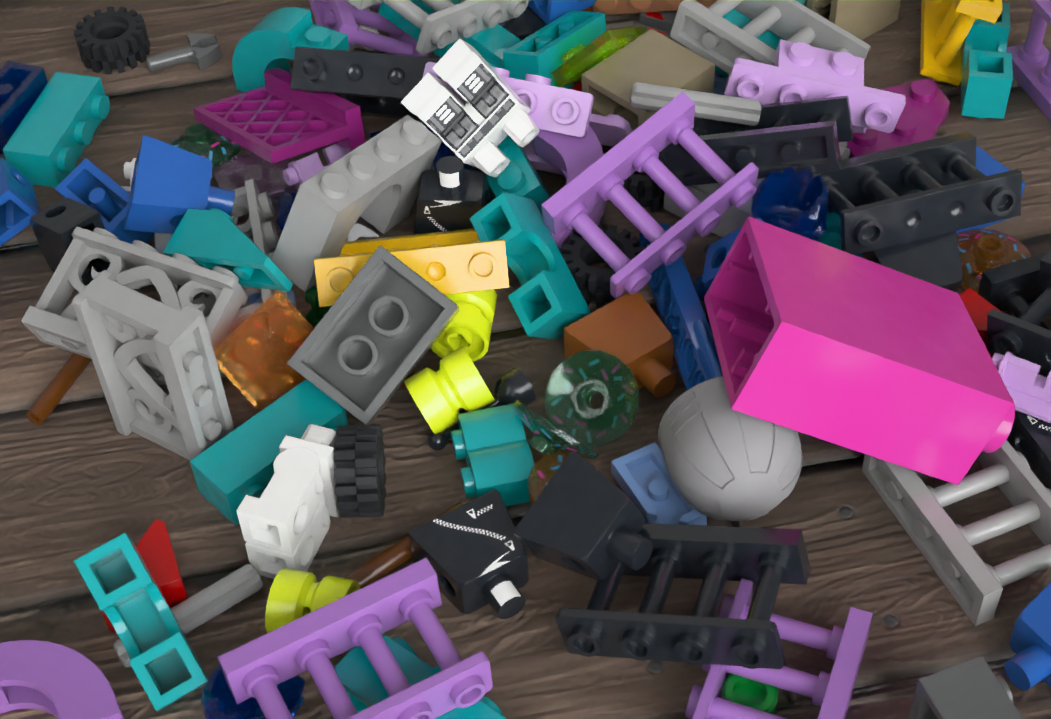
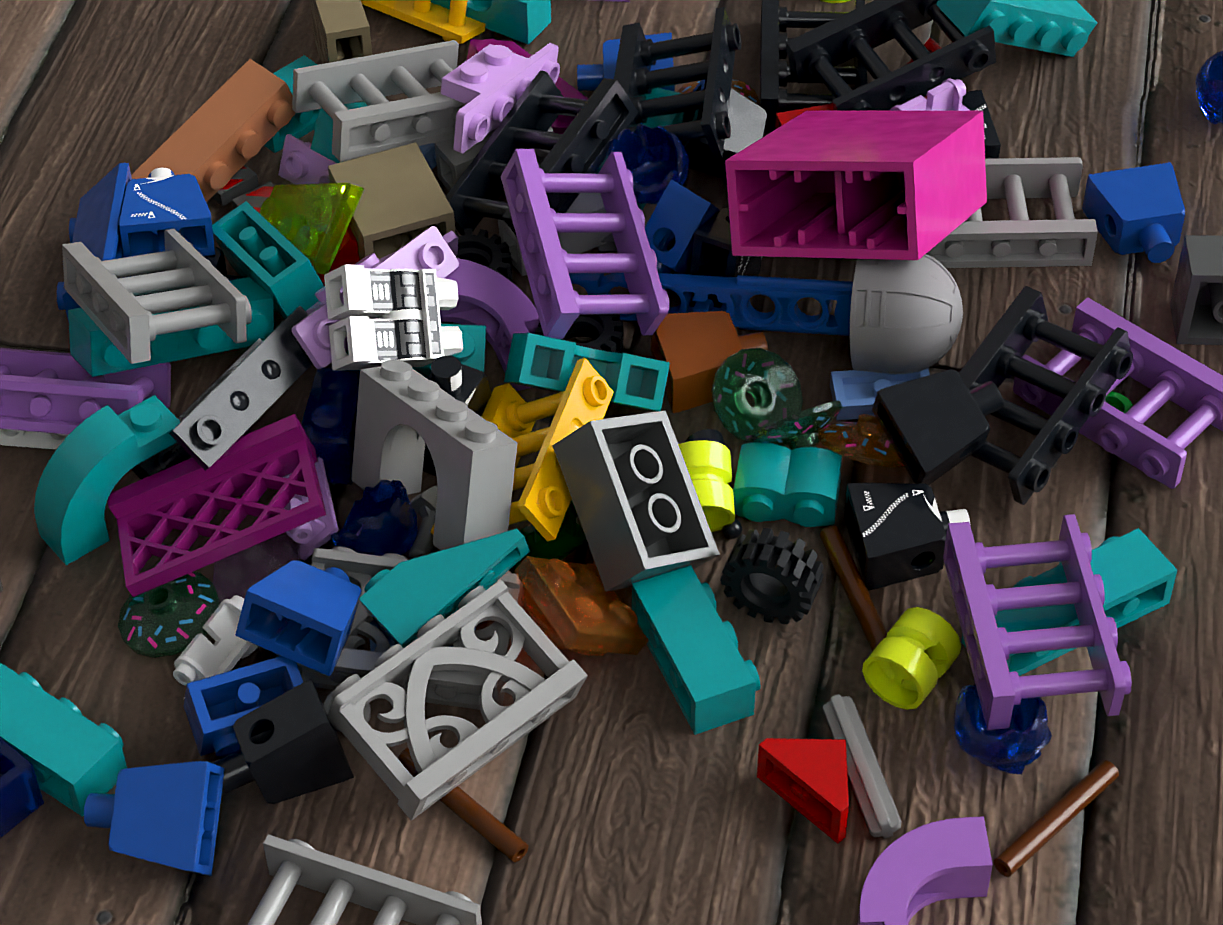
camera: 70 degrees left, 0 degrees up
(125, 324) = (649, 611): light grey fence -> none
(142, 621) = (865, 764): teal arch -> none
(296, 506) = (792, 631): white hips -> none
(706, 104) = (472, 172): light grey axle -> none

